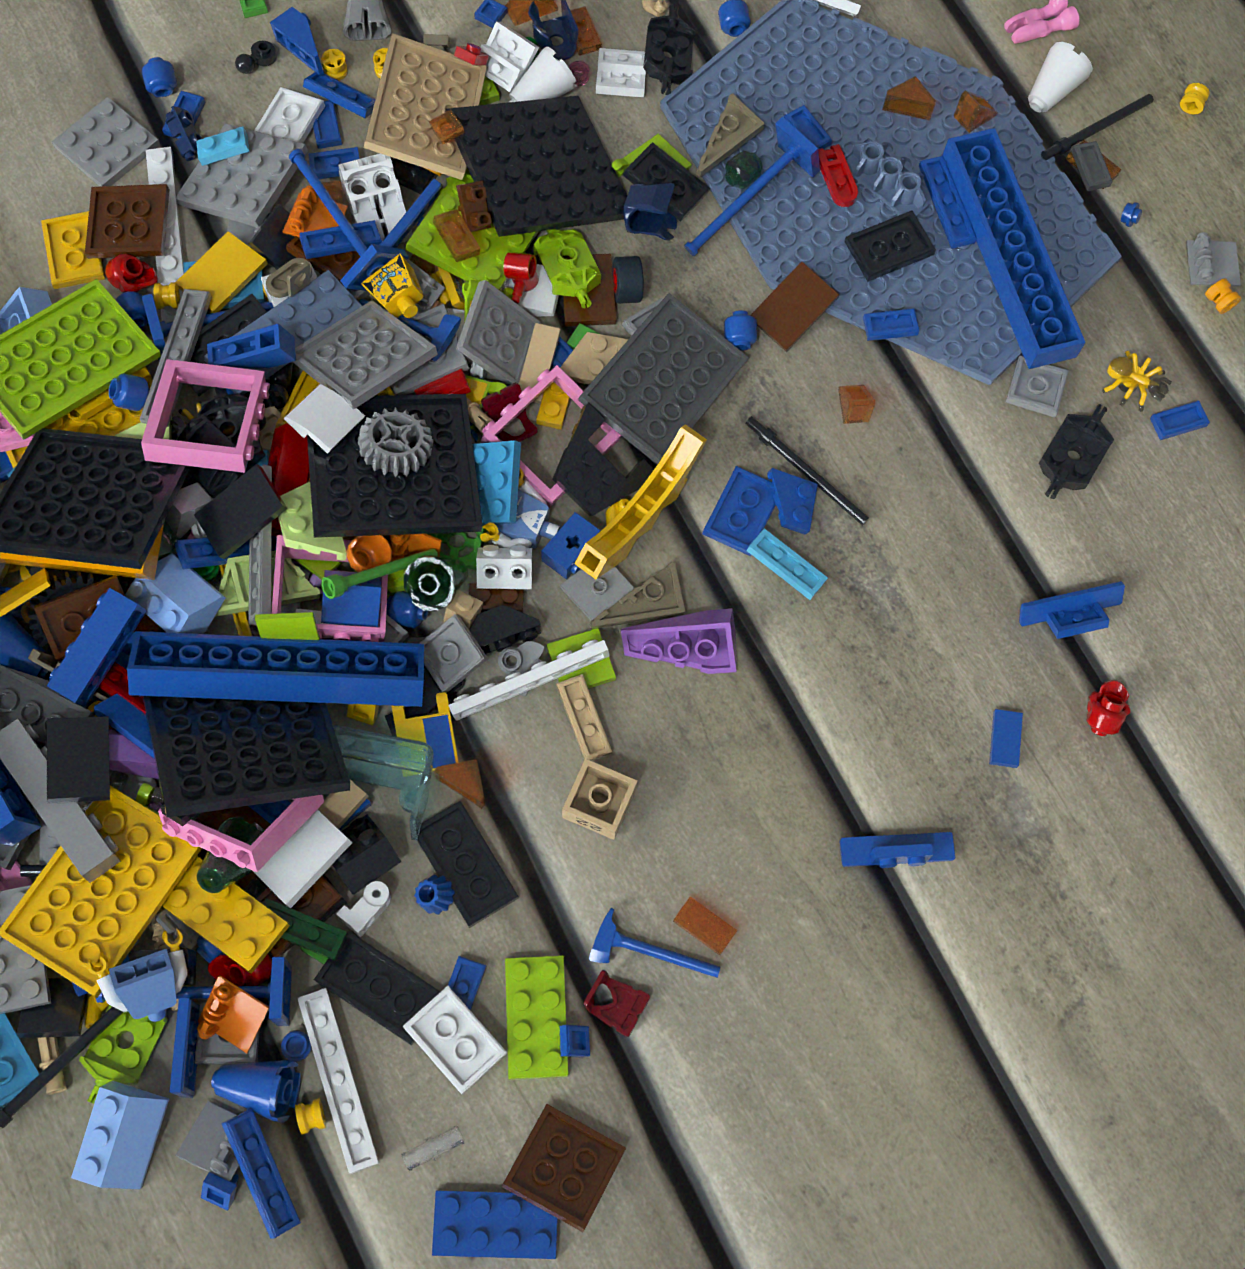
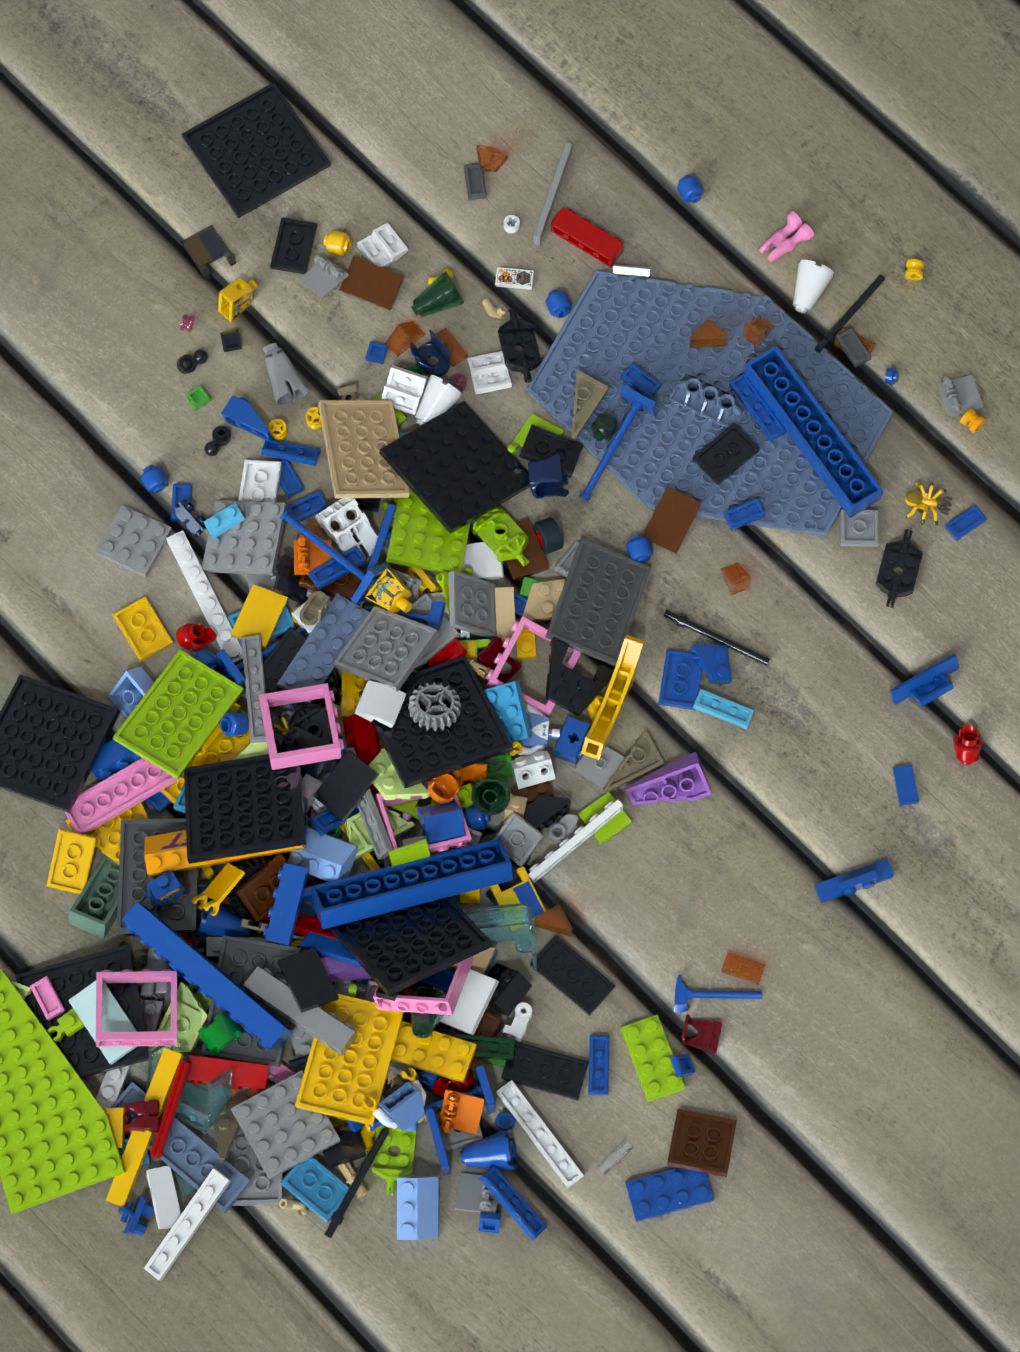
camera: 10 degrees left, 0 degrees up
(127, 221) = (178, 597): reddish brown plate -> none
(166, 295) = (229, 644): yellow wheel -> none
(254, 349) = (311, 670): blue slope -> none
(310, 1116) = (530, 1161): yellow wheel -> none
(336, 585) = (434, 816): bright green piece -> none
(434, 902) = (567, 1001): blue piece -> none
(446, 127) = (387, 463): clear orange plate -> none
(455, 1040) = (606, 1087): white tile -> none
(456, 235) = (420, 542): clear orange plate -> none
(471, 54) = (380, 397): red plate -> none
(474, 205) = (425, 517): reddish brown hips -> none
(522, 271) = (474, 554): red piece -> none
(584, 718) = (619, 856): tan tile -> none
(599, 799) = (648, 906): tan brick -> none
(838, 176) = (673, 411): red plate -> none

